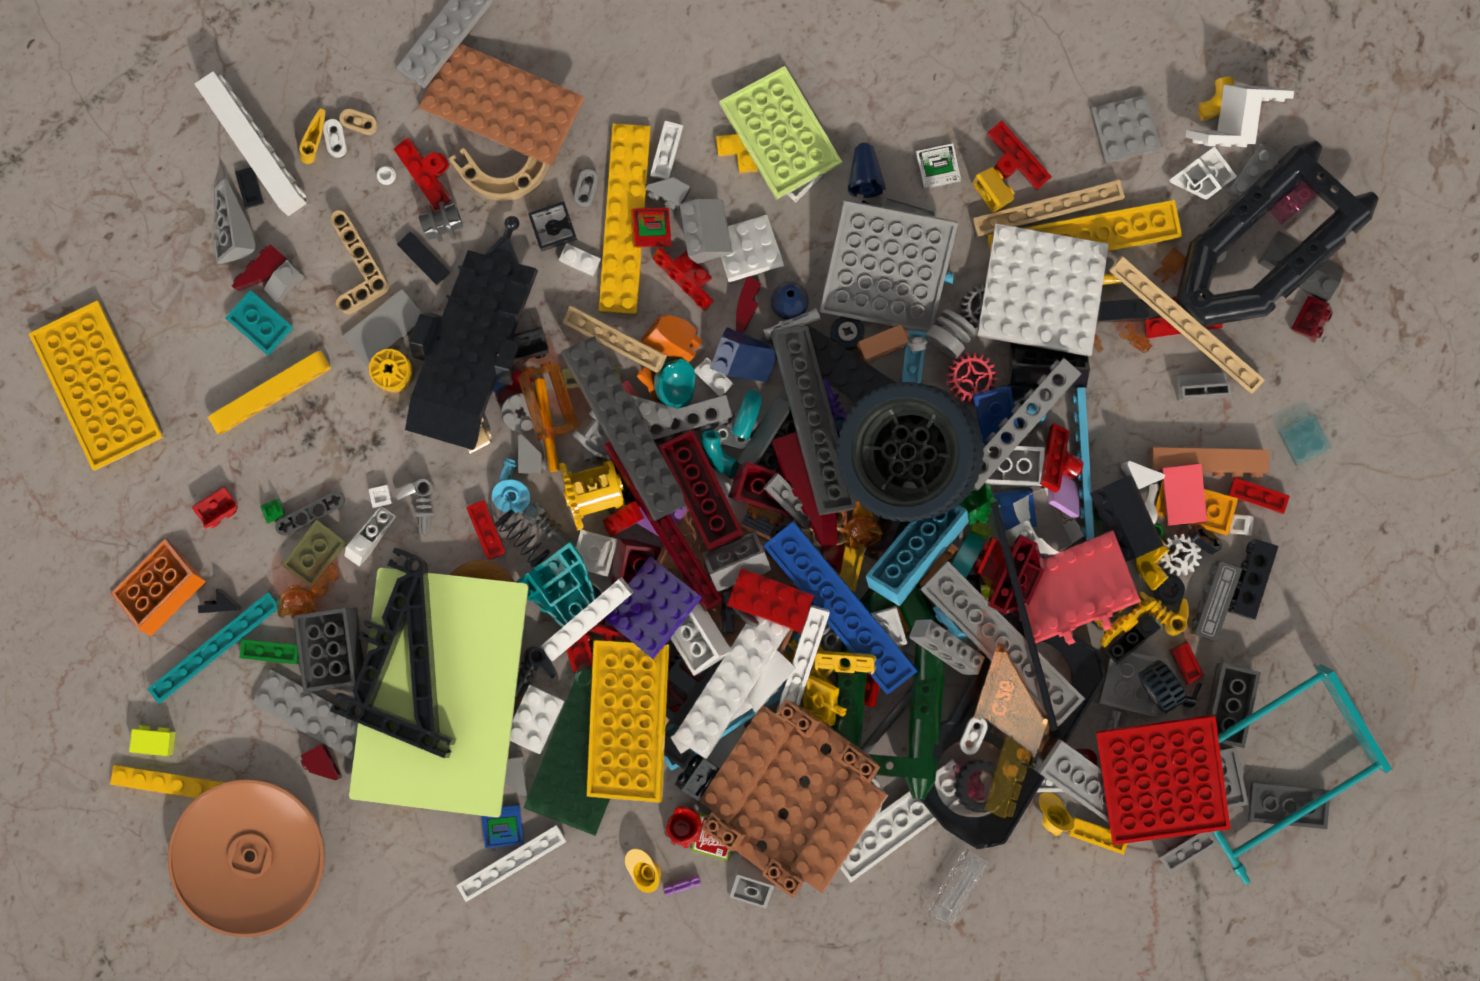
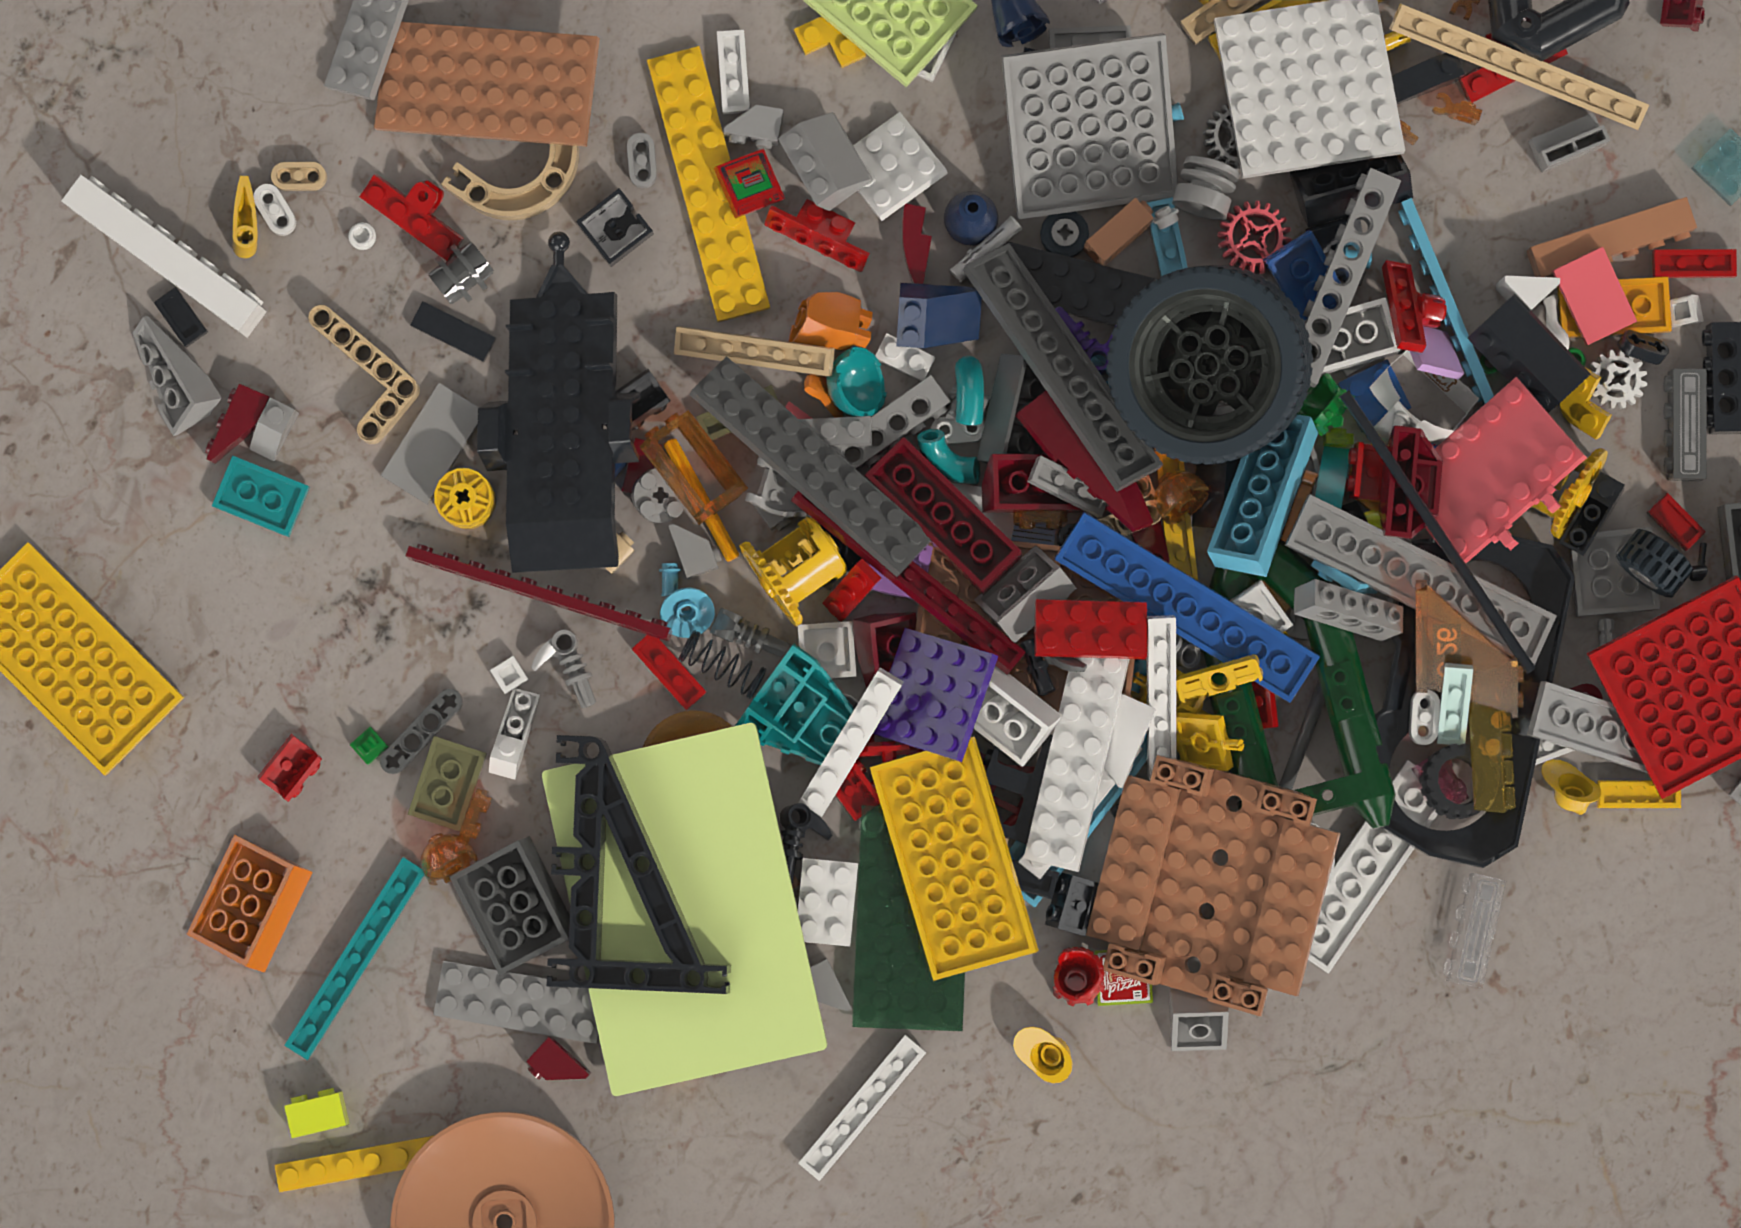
camera: 25 degrees left, 0 degrees up
(224, 603) = (349, 894): black slope -> none
(269, 392) = (308, 586): yellow beam -> none
(269, 651) = (433, 937): green plate -> none
(412, 443) = (527, 587): none -> dark red plate
(504, 829) = (835, 1066): tile -> none
(579, 260) = (667, 260): white plate -> none
(681, 885) = (1102, 1057): medium lavender axle -> none
(996, 733) = (1454, 703): none -> light aqua plate
(1169, 617) = (1630, 469): yellow piece -> none
(1177, 591) = (1630, 430): black gear -> none

